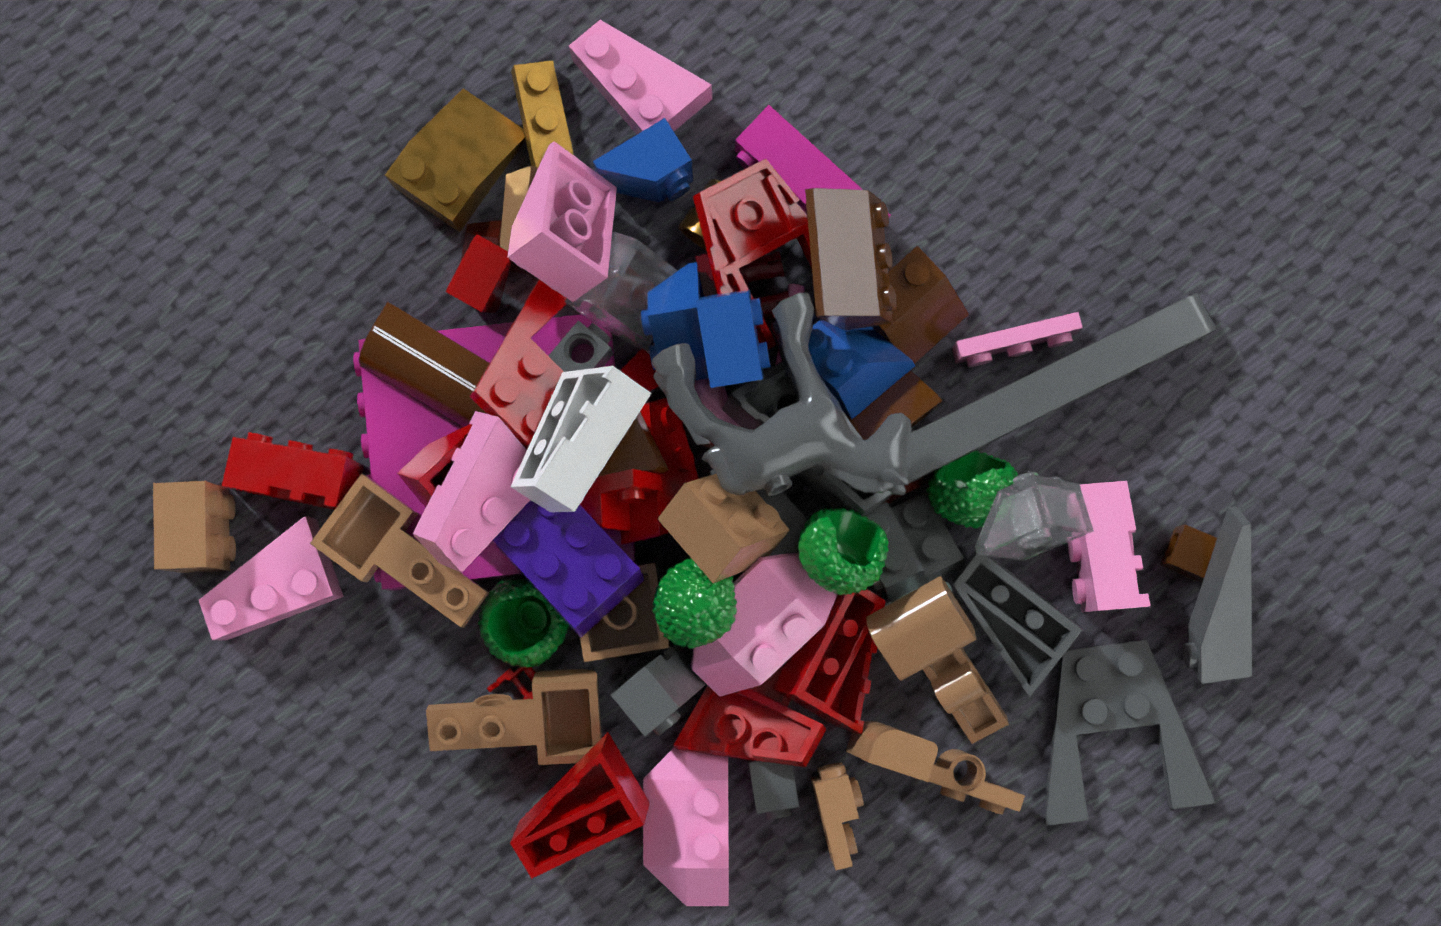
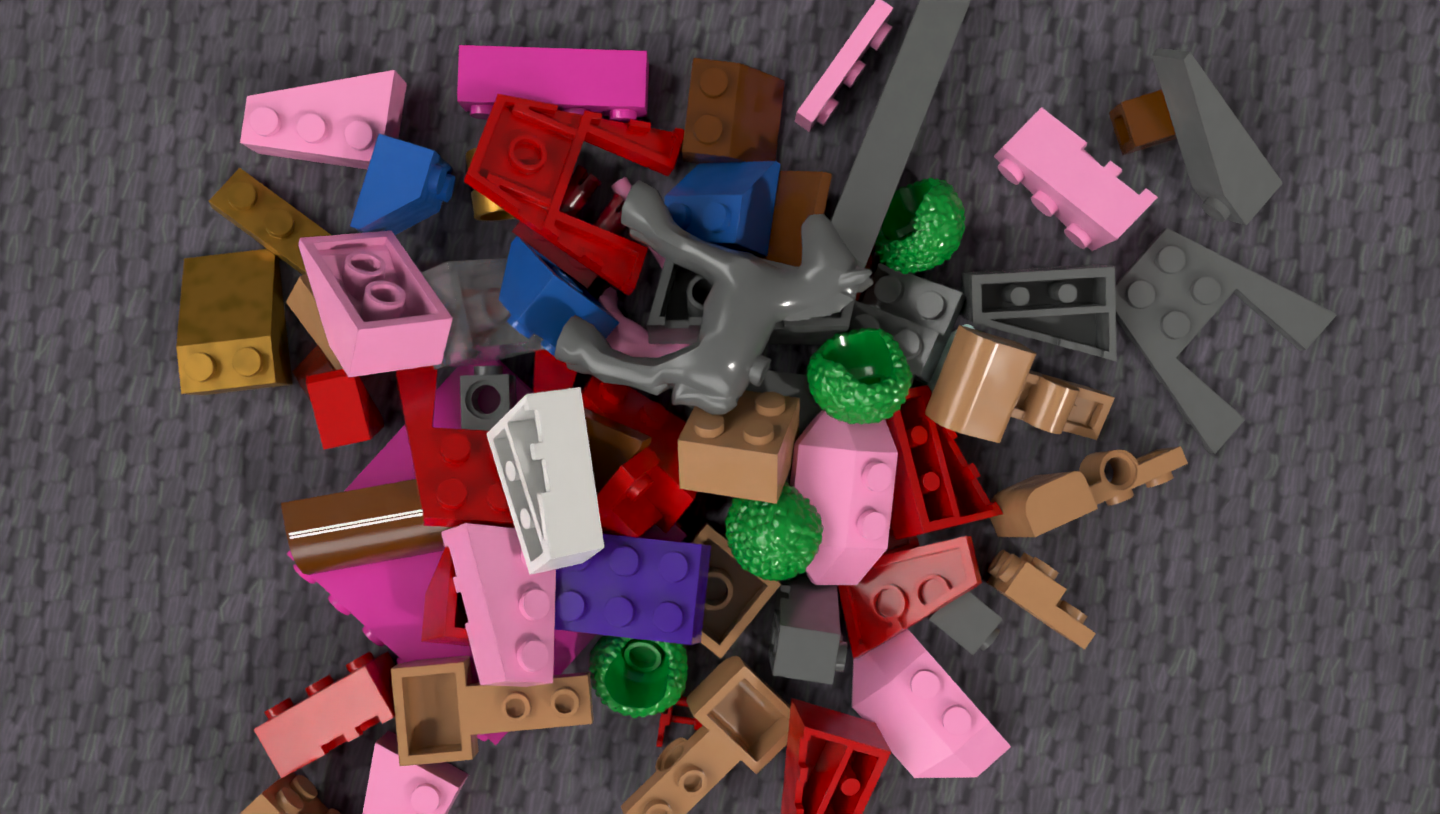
camera: 45 degrees left, 5 degrees up
(731, 338) = (607, 277): blue slope -> none
(850, 258) = (646, 117): slope -> none
(1033, 518) = (993, 206): clear slope -> none

